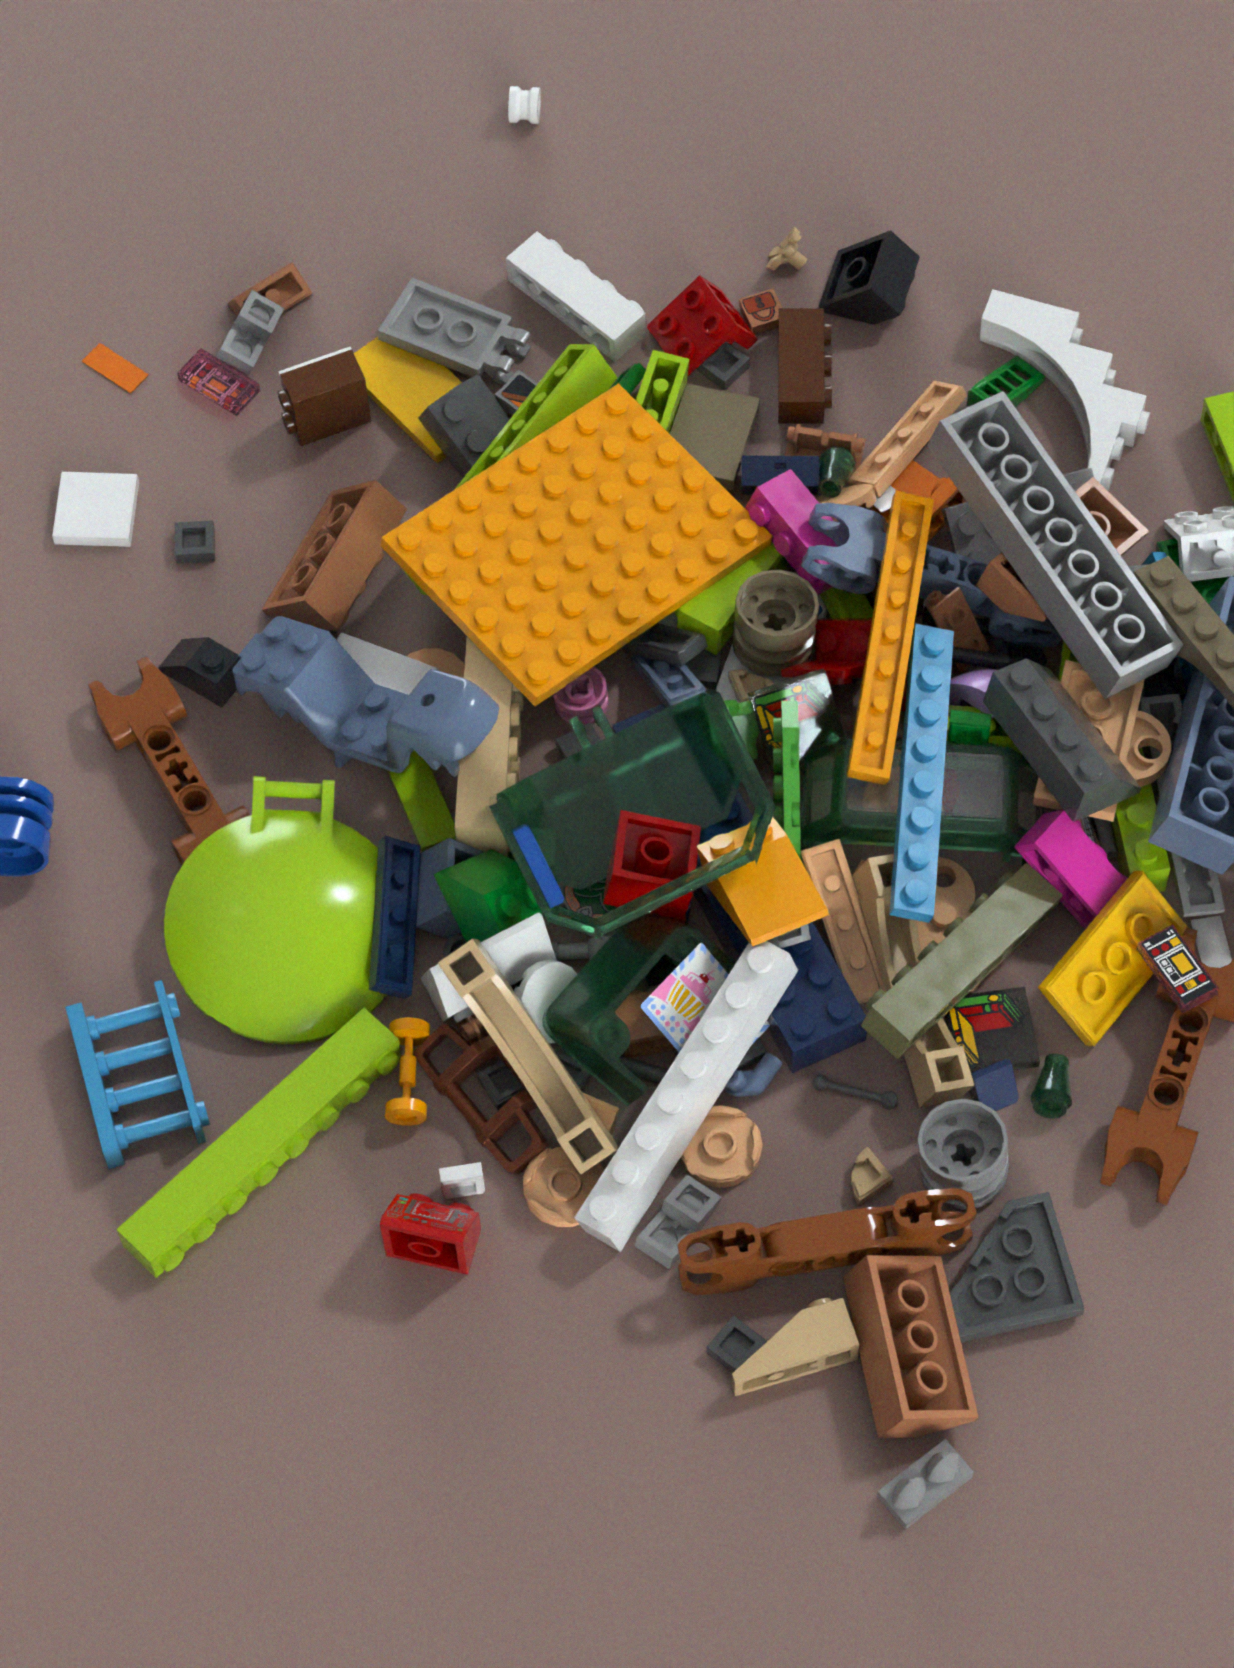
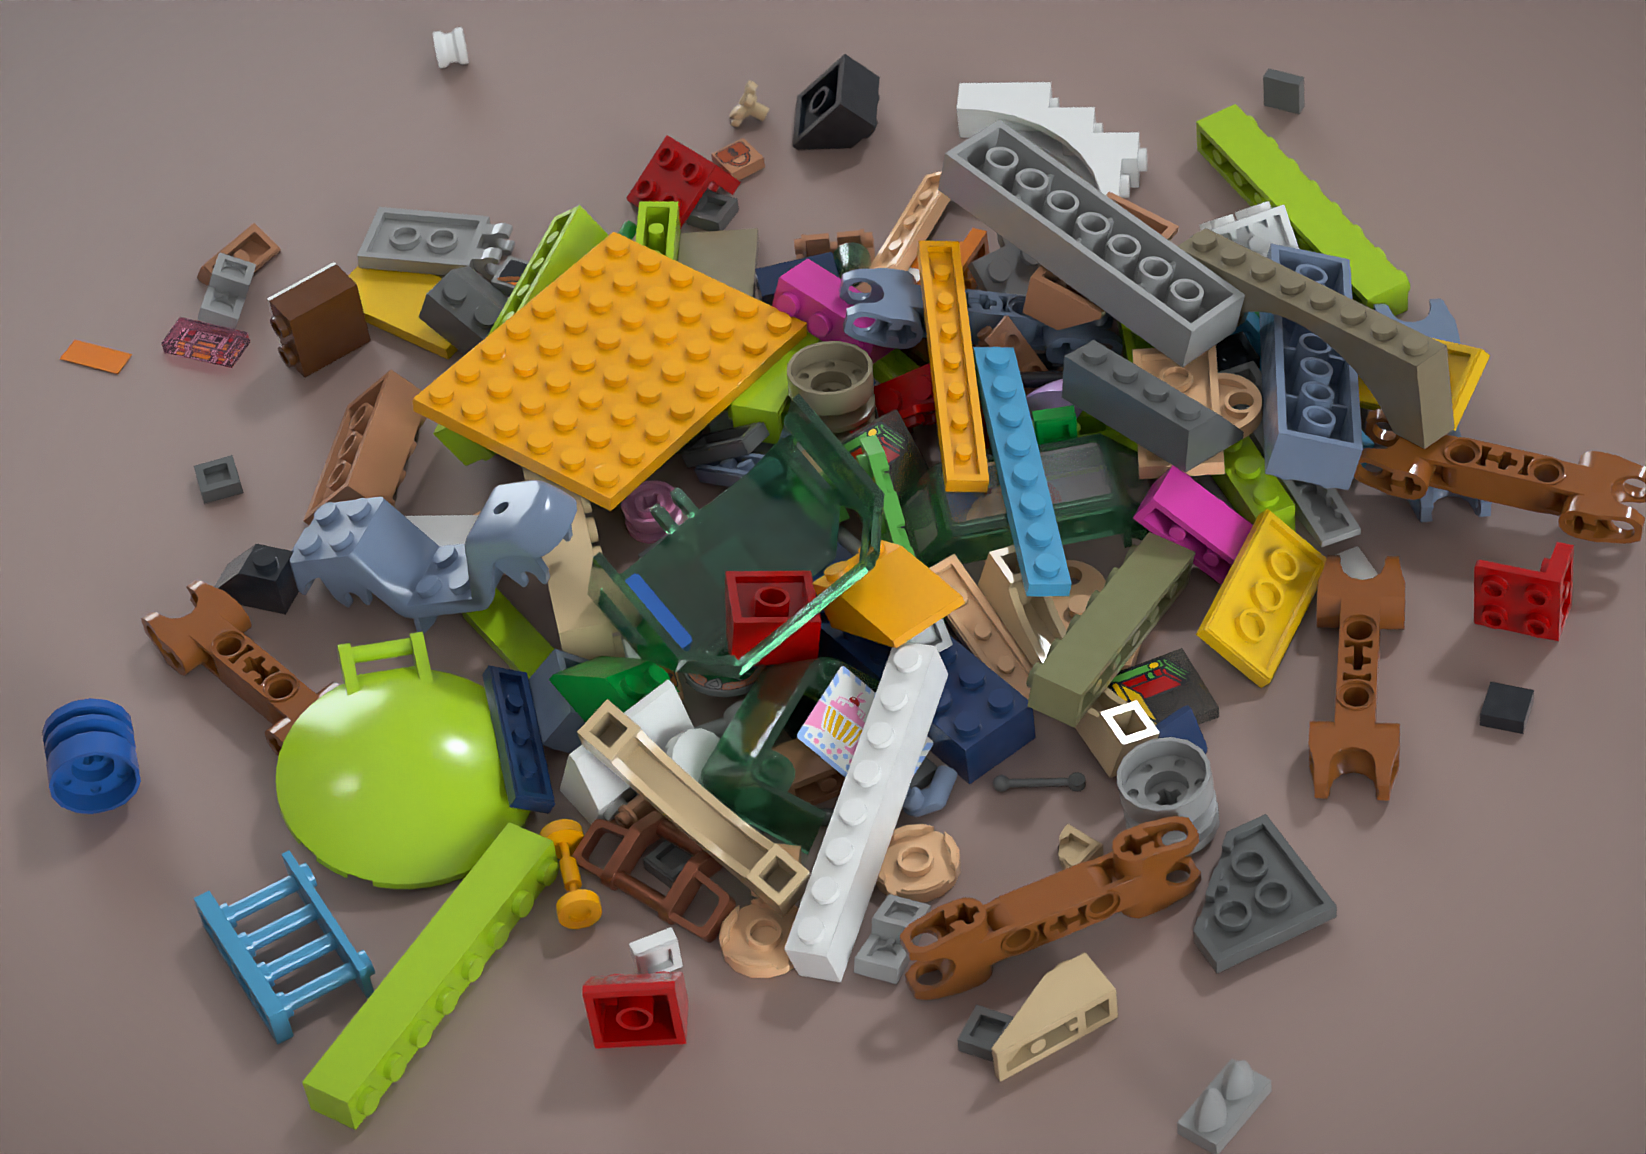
camera: 10 degrees left, 15 degrees down
(95, 509) = (108, 476): white tile -> none
(576, 296) = (545, 184): white brick -> none
(803, 366) = (791, 189): reddish brown brick -> none
(909, 1345) = (1167, 981): nougat slope -> none
(1052, 1090) = (1239, 728): clear green cone -> none
(1177, 968) = (1331, 585): tile -> none

